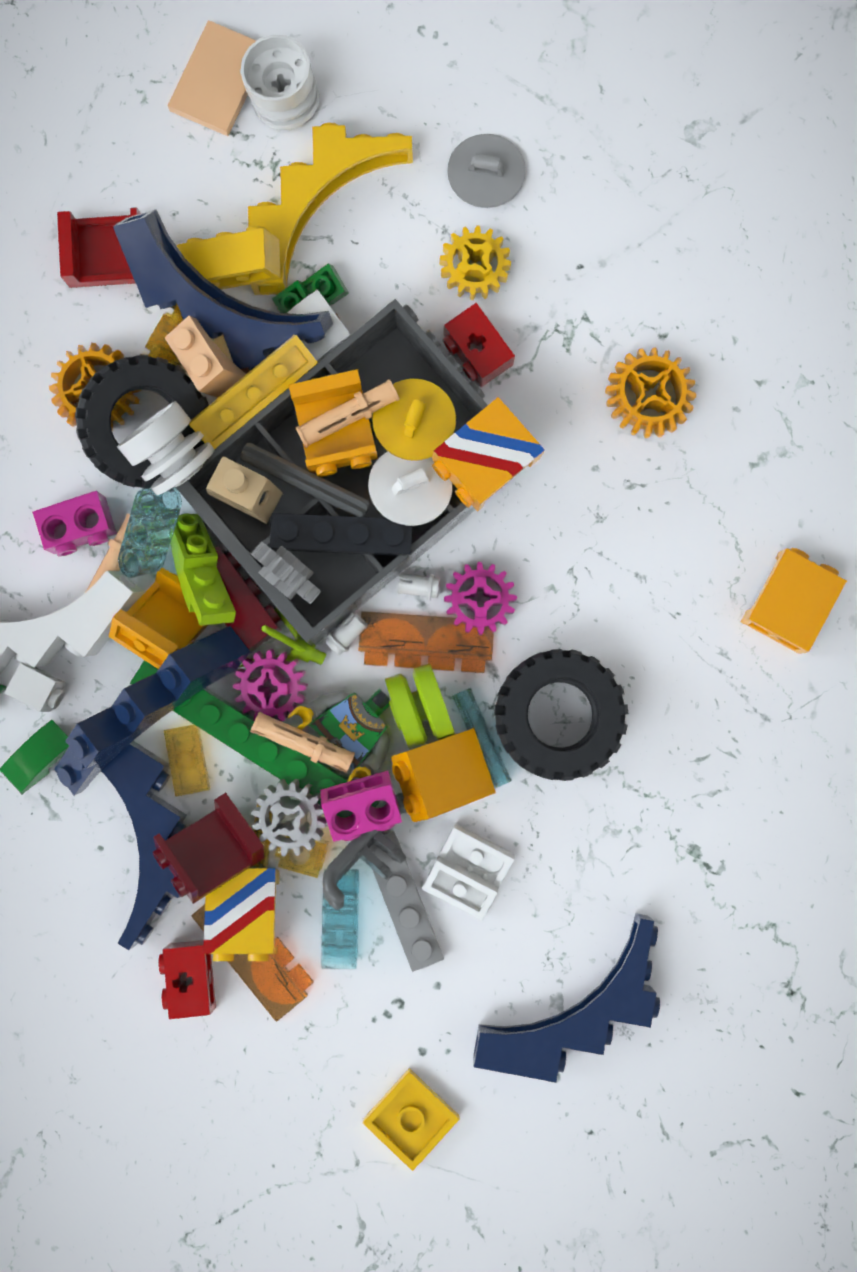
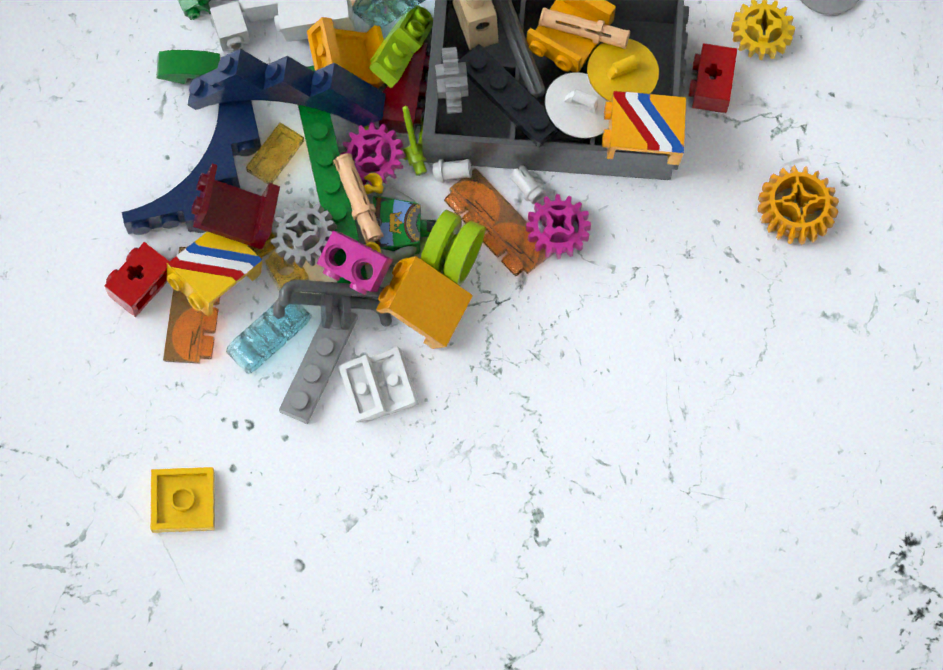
camera: 40 degrees right, 15 degrees down
(474, 719) = (469, 320): clear light blue pin -> none
(536, 1047) = (354, 547): dark blue arch -> none
(606, 706) = (542, 301): black tyre -> none
(795, 600) = (763, 414): light orange panel -> none

